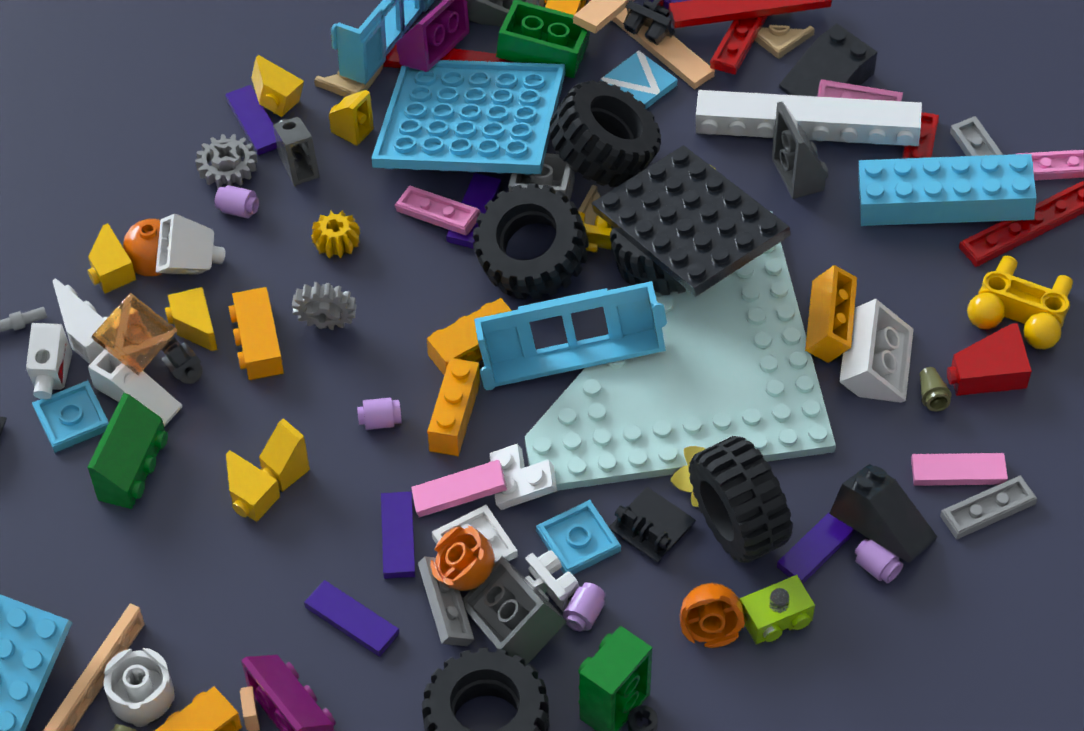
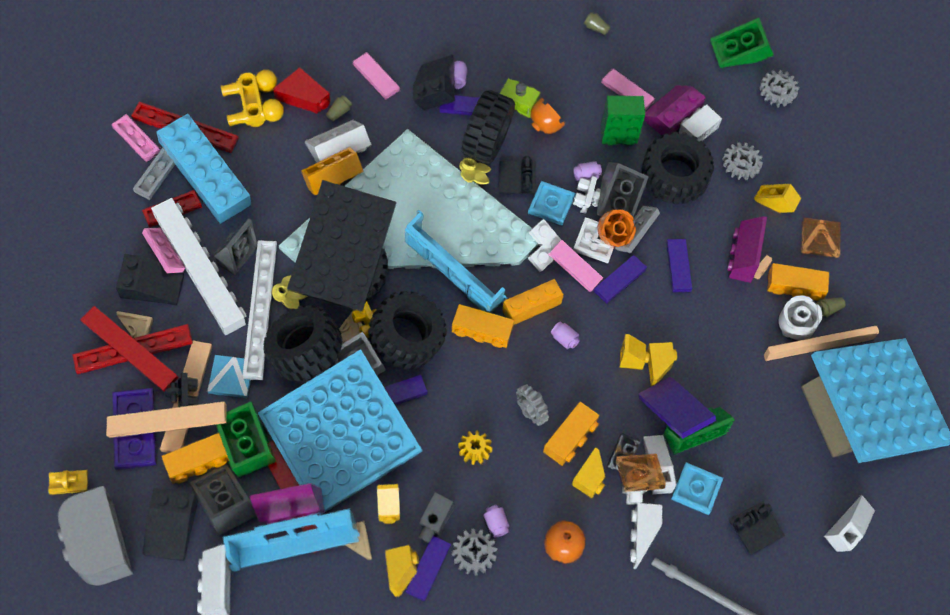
camera: 135 degrees left, 10 degrees up
(48, 358) = (684, 519): white torso -> none
(109, 262) = (596, 553): yellow slope -> none
(170, 440) = (677, 407): none -> dark purple tile
(186, 247) = (558, 509): white torso -> none
(437, 210) = (414, 407): bright pink tile -> none
(744, 175) = (259, 310): none -> white tile
(988, 507) = (387, 54): light grey tile -> none

